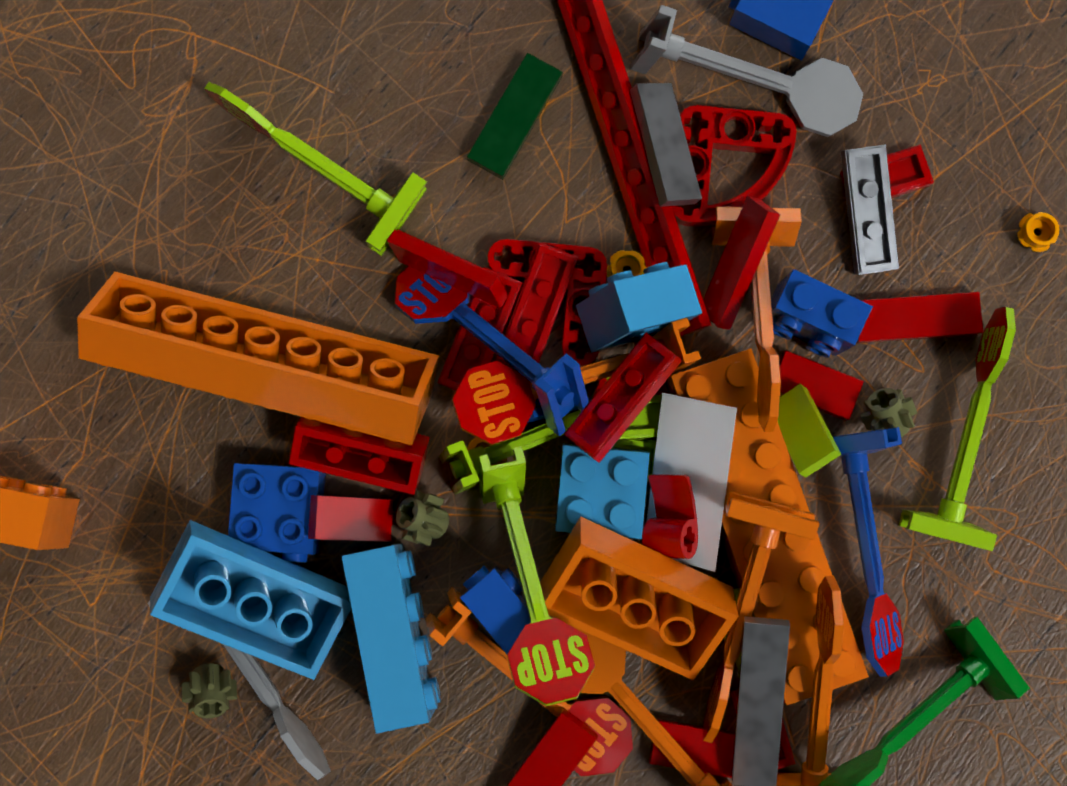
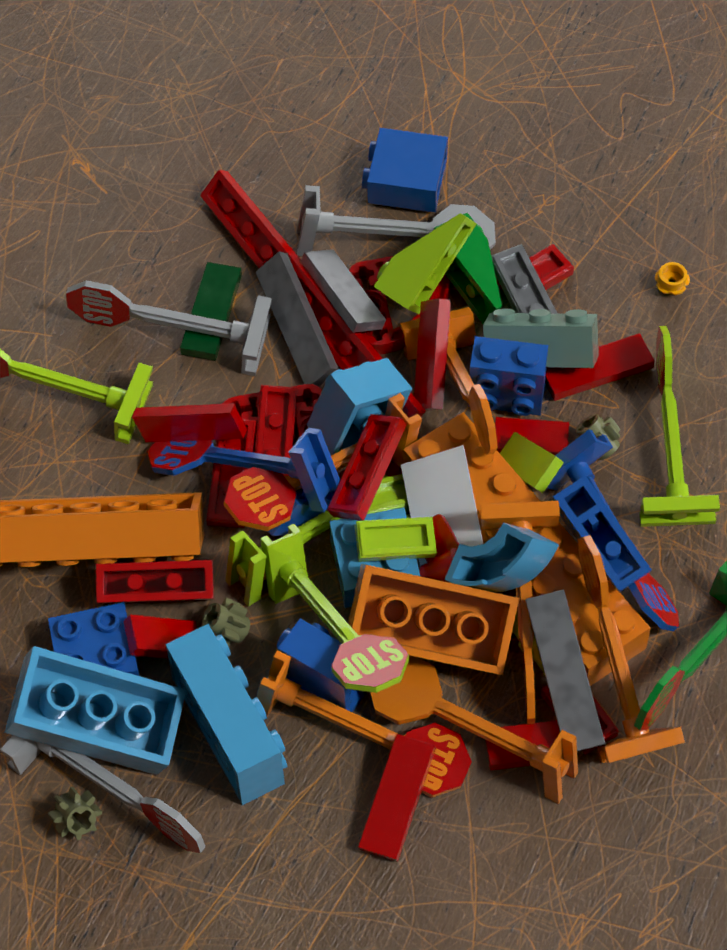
camera: 15 degrees left, 25 degrees down
(545, 163) = (108, 307): none -> light grey piece
(604, 163) = (296, 320): none -> flat silver tile
(627, 495) = (395, 539): none -> lime tile
(729, 576) = (503, 561): none -> dark azure brick
(750, 154) = (420, 267): none -> lime slope
(816, 145) = (474, 274): none -> green slope
(853, 560) = (589, 515): none -> blue slope
(870, 273) = (570, 335): none -> sand green brick

